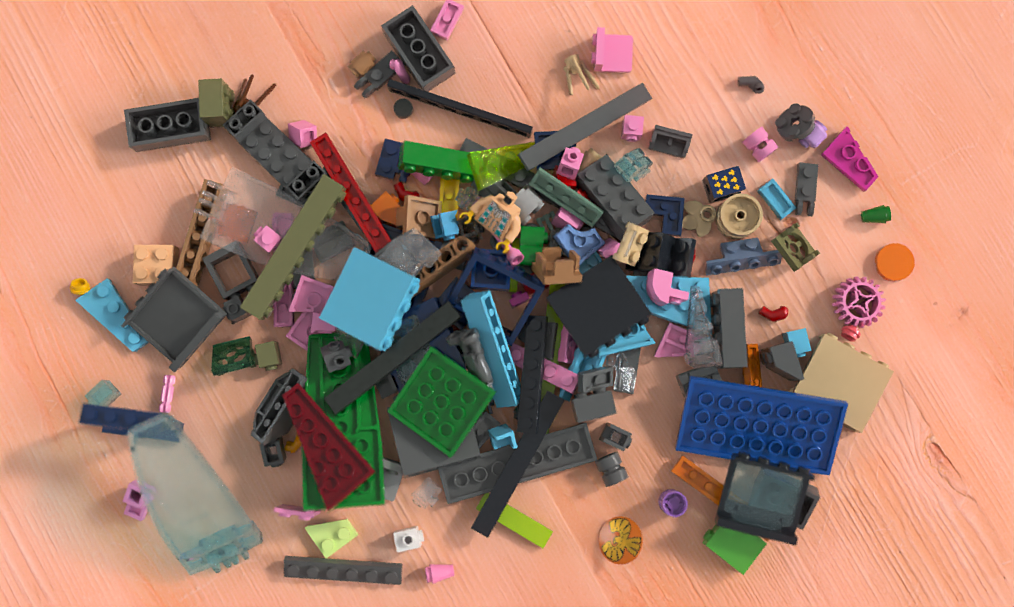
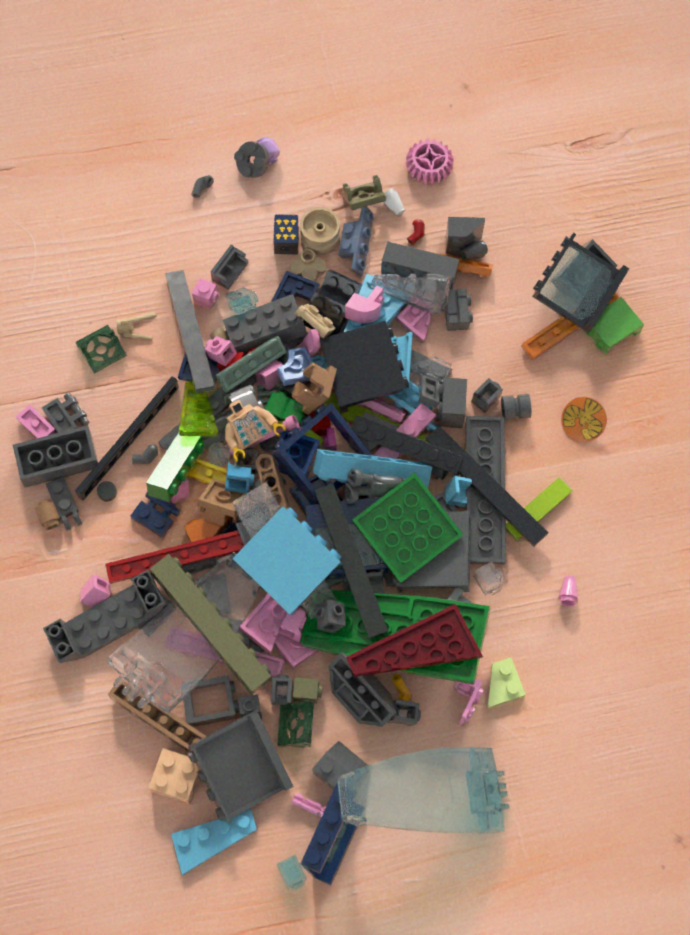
camera: 75 degrees left, 15 degrees down
(79, 286) = (169, 865): yellow plate -> none
(135, 504) = (412, 863): bright pink brick -> none
(165, 125) = (35, 720): dark grey brick -> none
(206, 409) = (336, 762): none -> dark grey slope
(215, 102) = (33, 662): olive brick -> none
(242, 100) = (42, 643): reddish brown plant -> none
(260, 332) = (281, 690): none -> dark grey window
(267, 238) = (192, 648): bright pink brick -> none
(343, 570) = (541, 682): dark grey plate -> none
(400, 70) = (71, 478): bright pink arm -> none
(401, 192) = (194, 513): red arm -> none
(408, 538) = (528, 609): white brick -> none
(448, 133) = (147, 457): none -> dark grey arm
(460, 39) = (60, 418): none -> dark grey plate
(541, 32) = (105, 331): none -> clear green piece
(612, 52) = (126, 290): bright pink bracket -> none
(673, 503) = (562, 364): medium lavender wheel -> none
(755, 139) = (254, 194): bright pink wheel -> none
(761, 422) = (513, 261): blue plate -> none
(770, 378) = (475, 250): none -> dark grey cone
(776, 199) = (314, 198): medium azure tile -> none
(798, 280) = (393, 202): none -> white cone
(800, 341) = (443, 216): medium azure brick -> none
(806, 187) = (313, 172): dark grey hinge -> none
(845, 375) = (498, 194): tan panel -> none
(850, 161) = (301, 130): dark pink wing -> none
(850, 333) = (454, 176): coral plate -> none
(876, 215) = (357, 124): green cone -> none
(894, 262) = (403, 124): orange tile -> none

